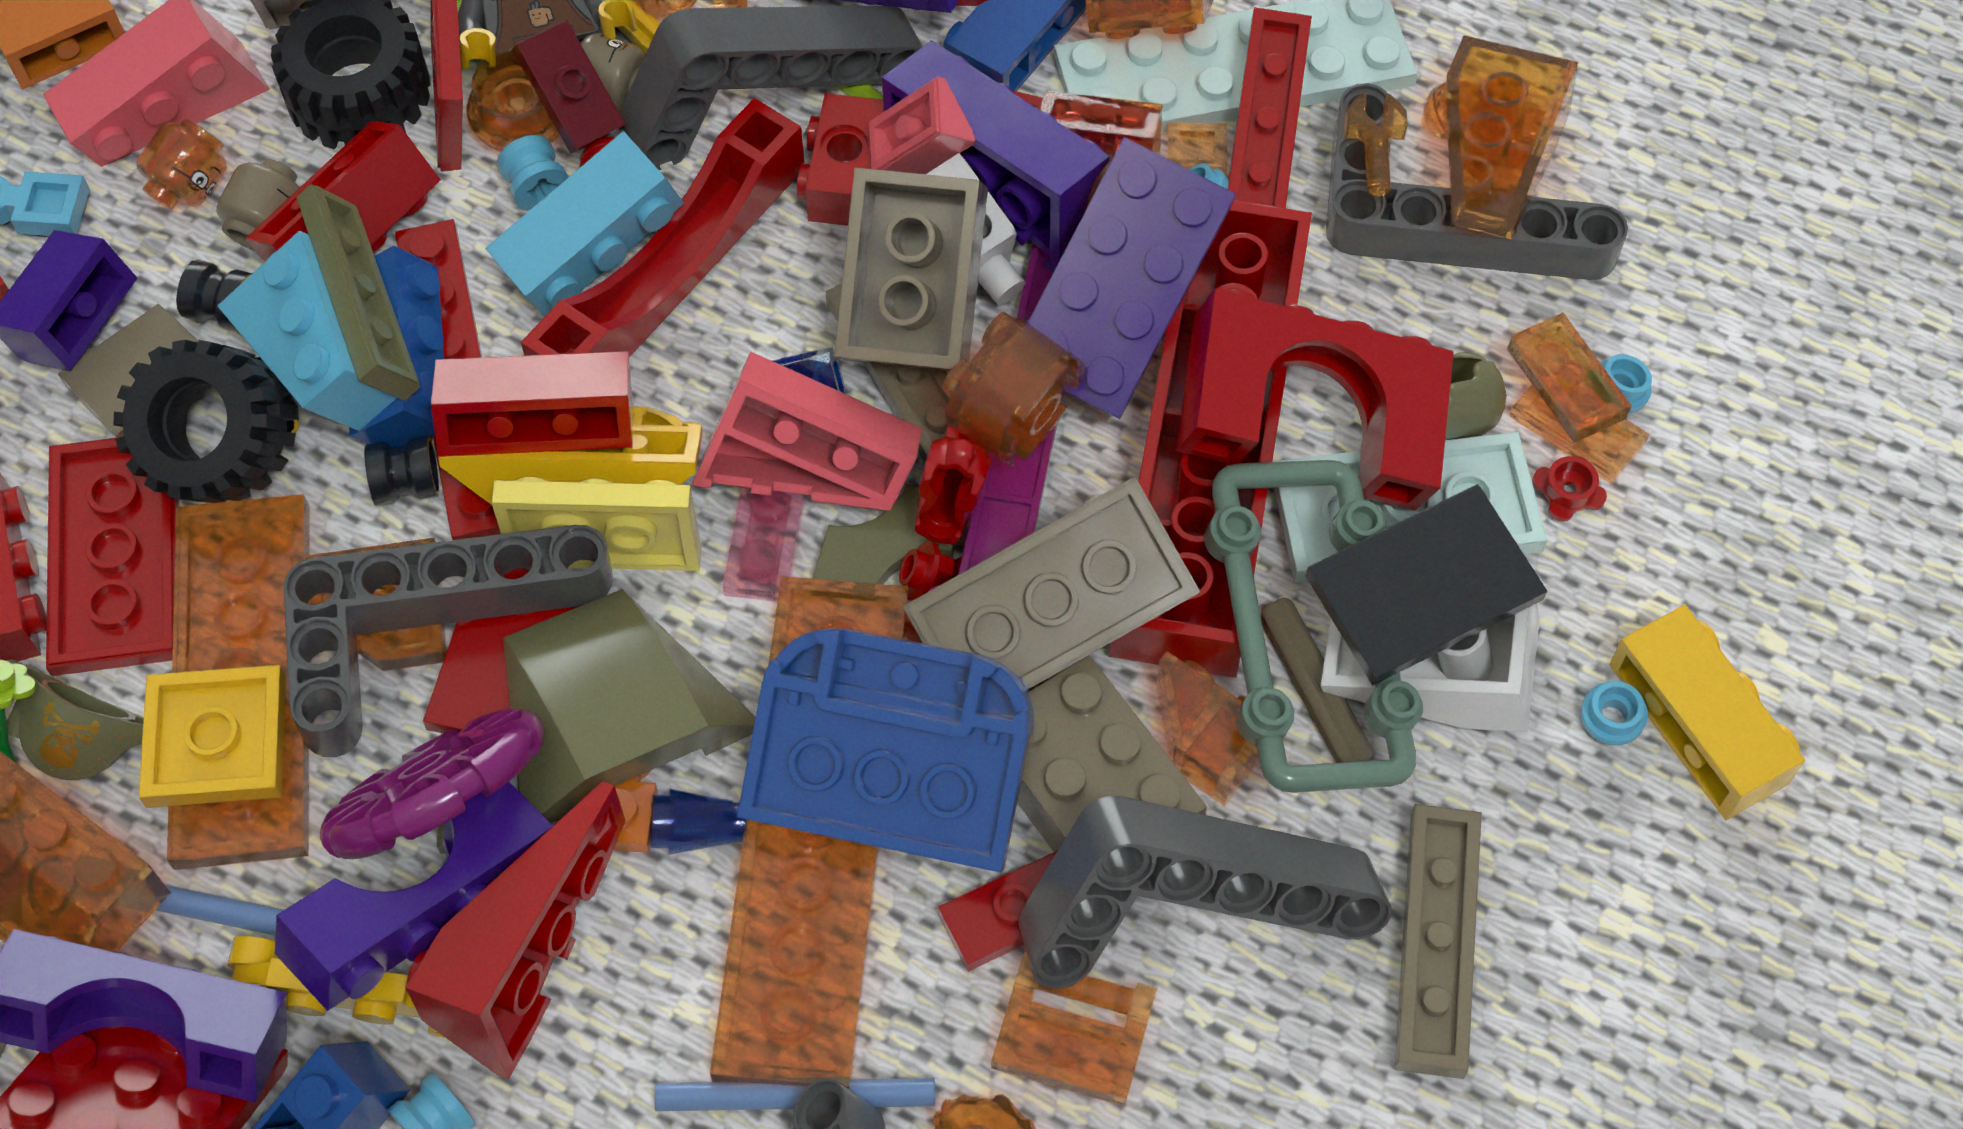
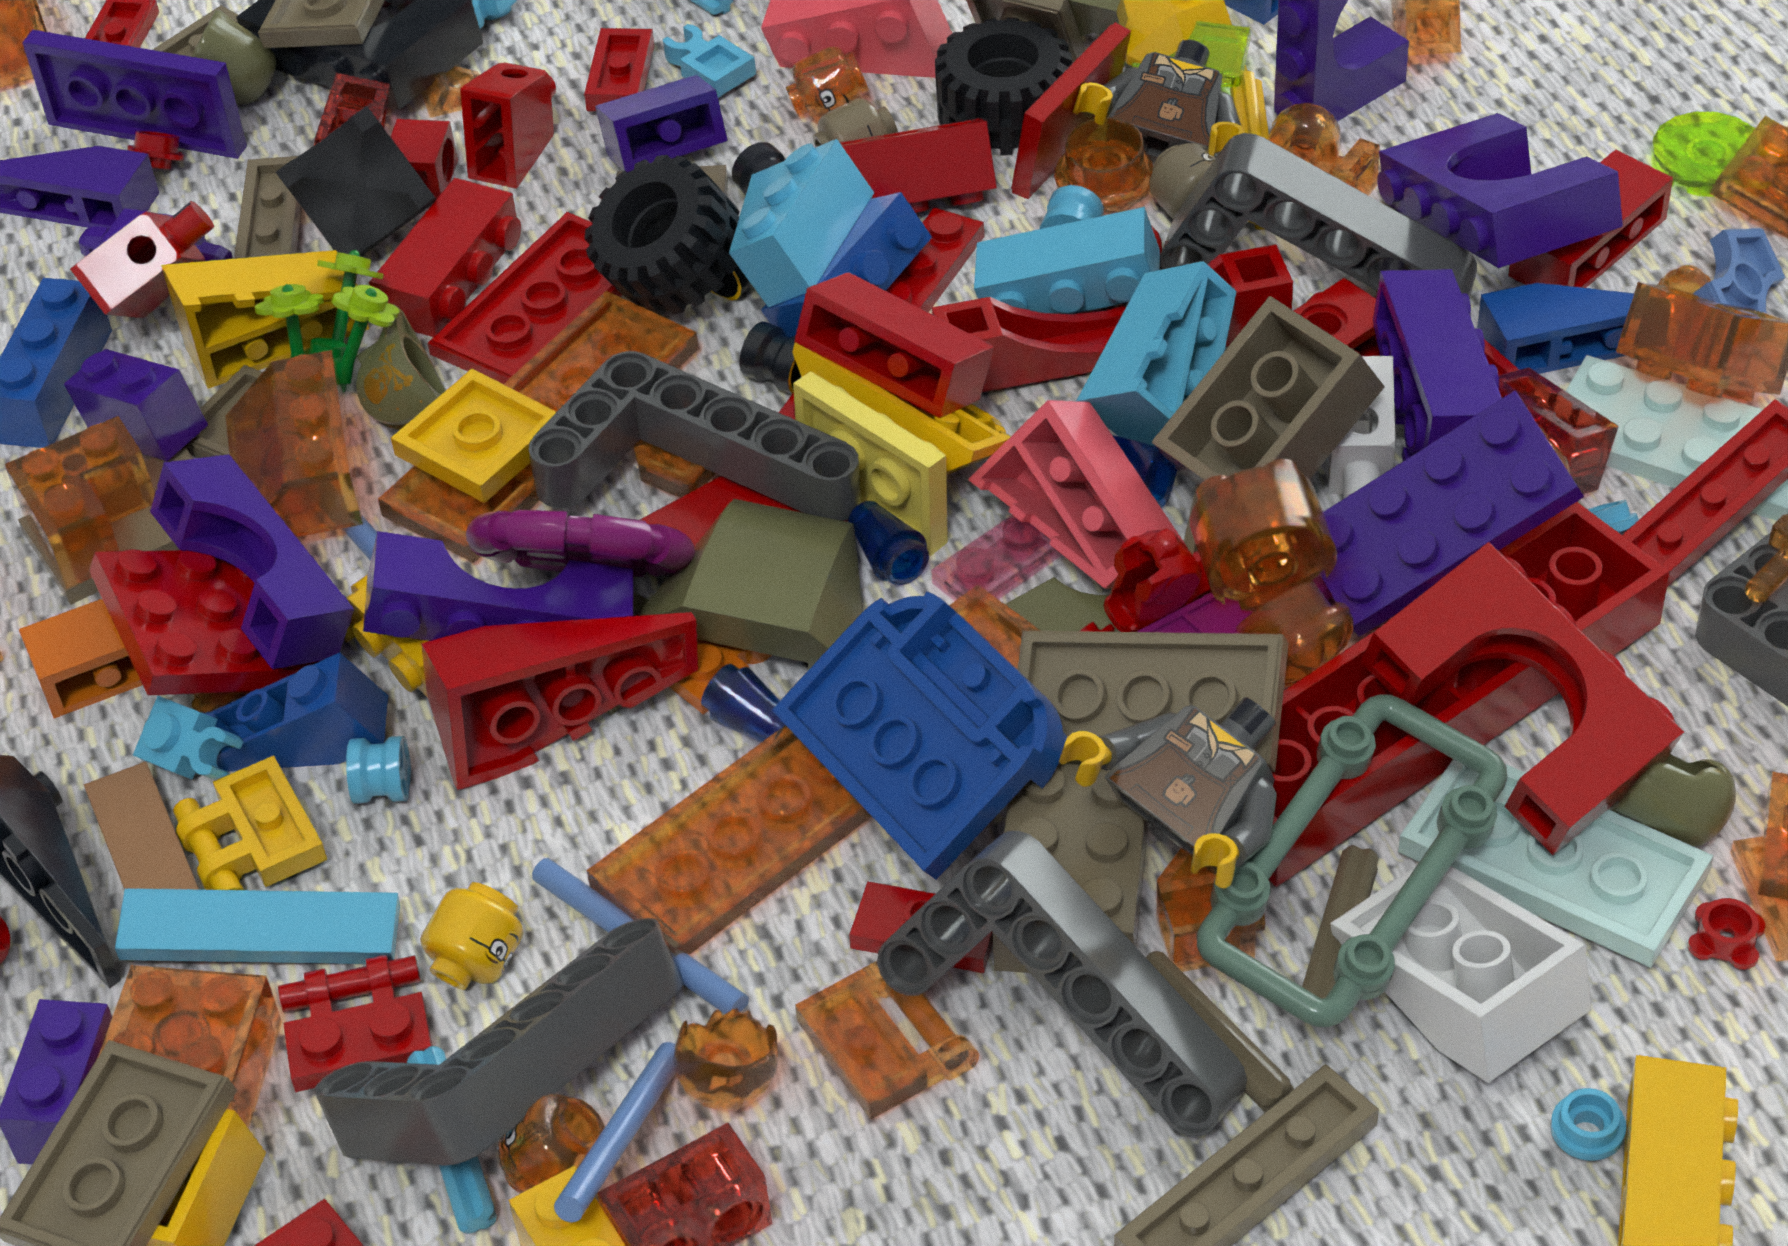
camera: 45 degrees right, 15 degrees down
(358, 293) = (842, 204): olive tile -> none
(568, 86) = (1142, 162): dark red plate -> none
(665, 586) = (889, 543): none -> clear blue cone
(760, 264) = (1160, 349): none -> medium azure wedge
(920, 131) = (1380, 322): coral slope -> none
(1094, 453) = (1309, 624): none -> clear orange piece
(1173, 652) = (1190, 780): none -> torso
(1198, 144) = (1638, 487): clear orange tile -> none
(1381, 847) = (1265, 1081): none -> dark tan axle
(1425, 584) = (1476, 881): black tile -> none

